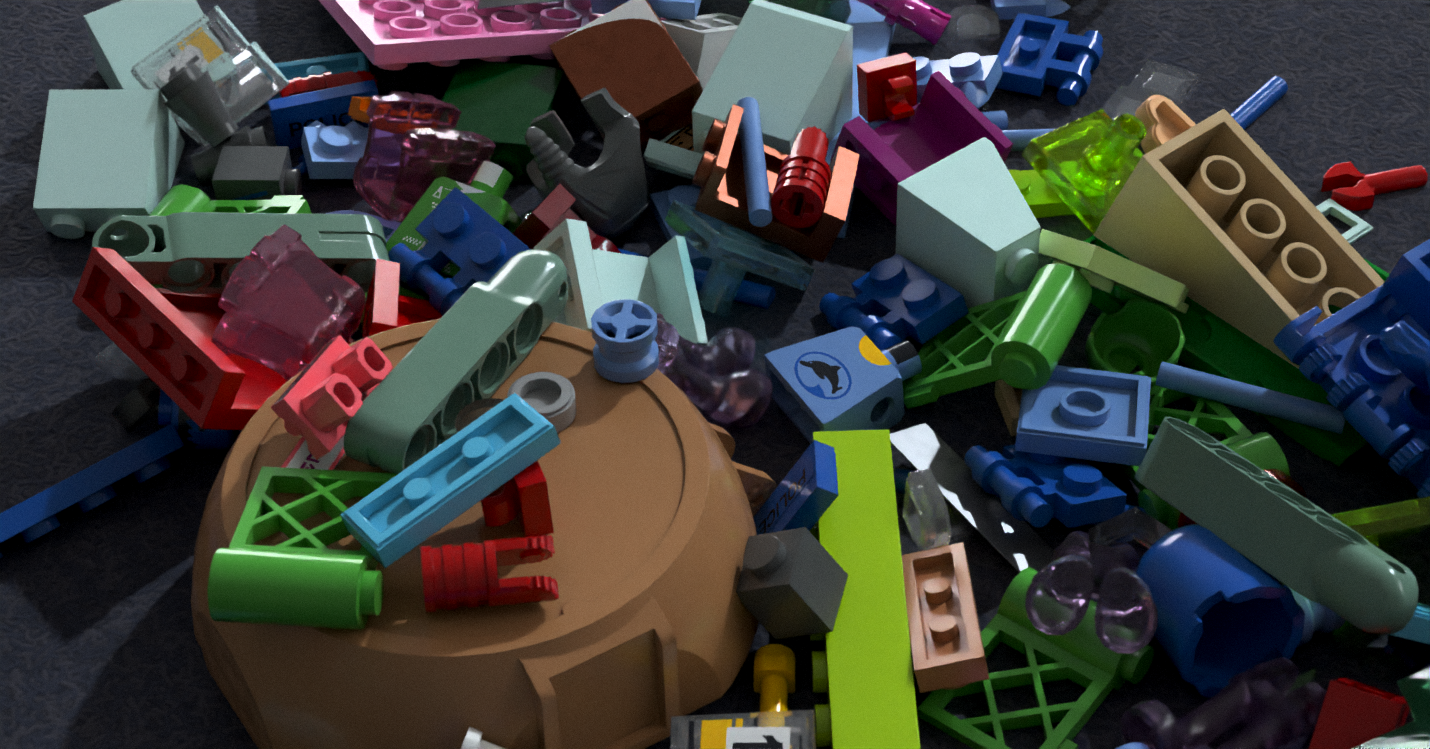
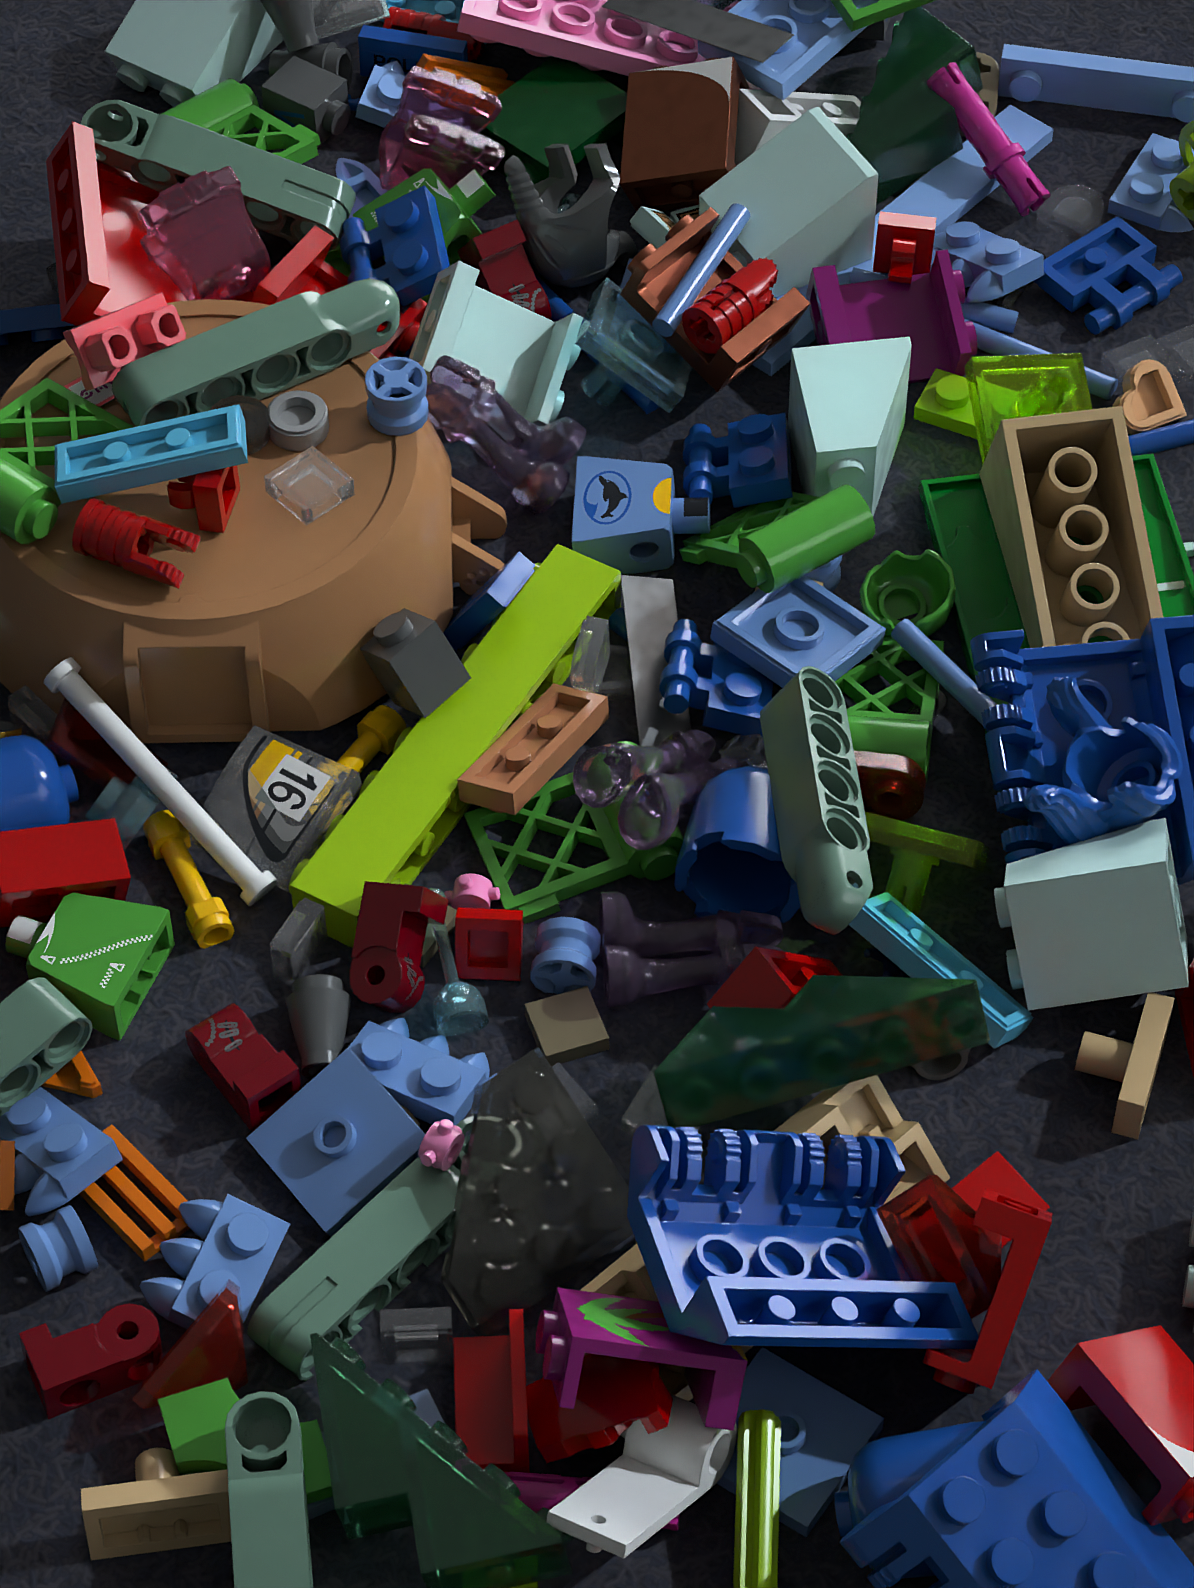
camera: 30 degrees right, 10 degrees up
(605, 452) = (309, 485): none -> clear tile
(1108, 269) = (931, 519): yellowish green plate -> none

